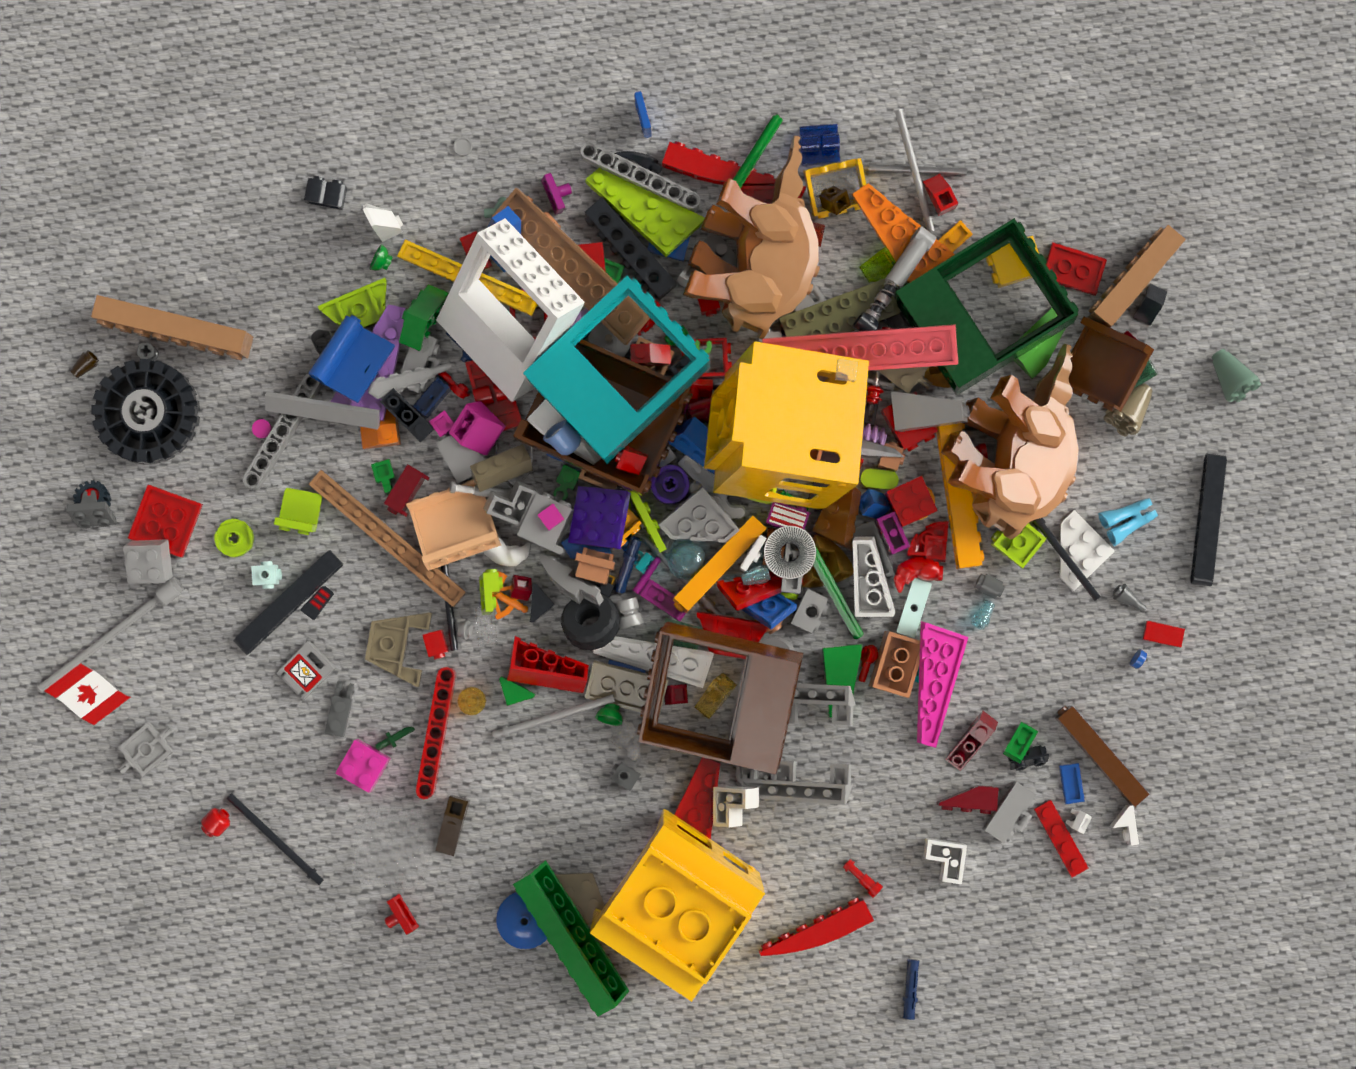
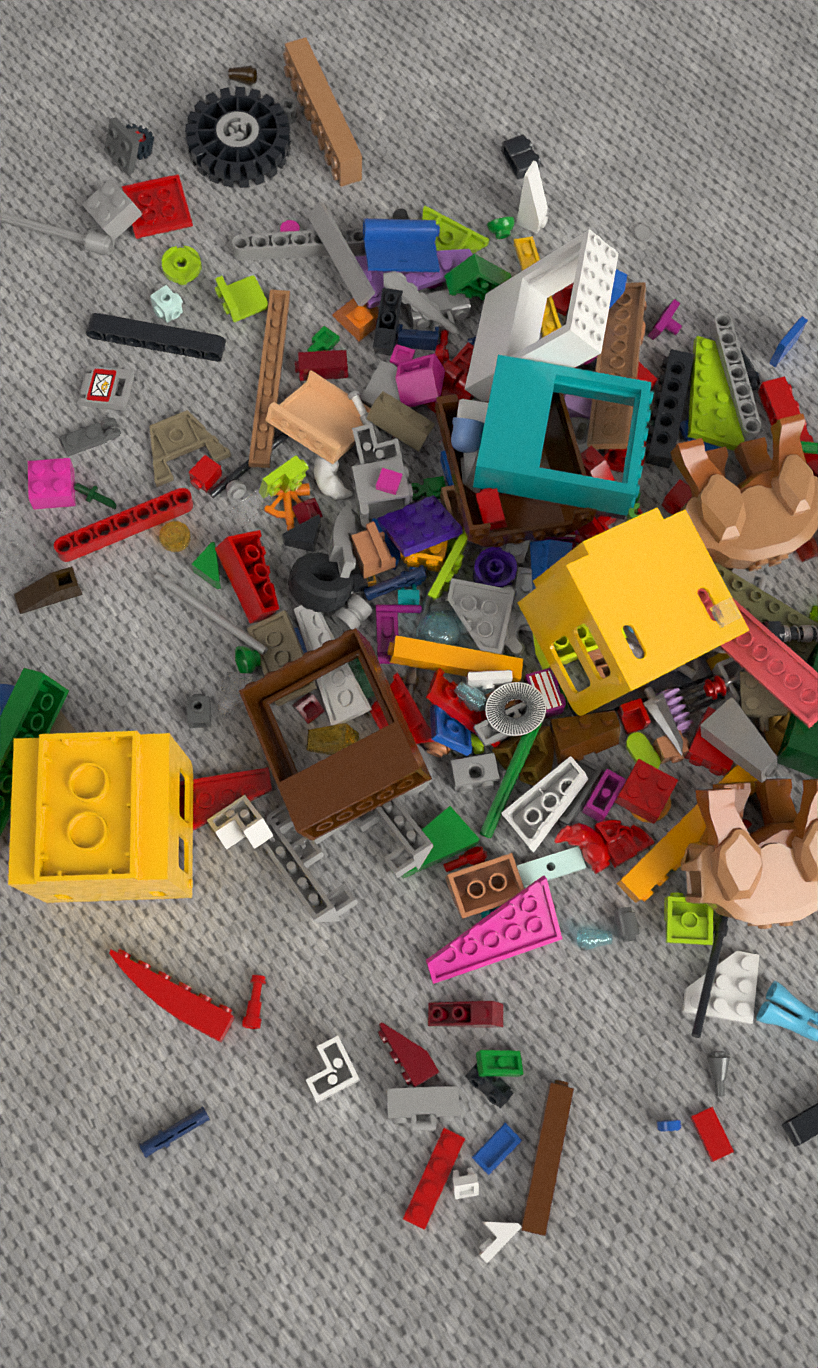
camera: 45 degrees right, 15 degrees down
(317, 602) = (173, 362): black sticker -> none
(874, 504) = (617, 760): blue panel -> none

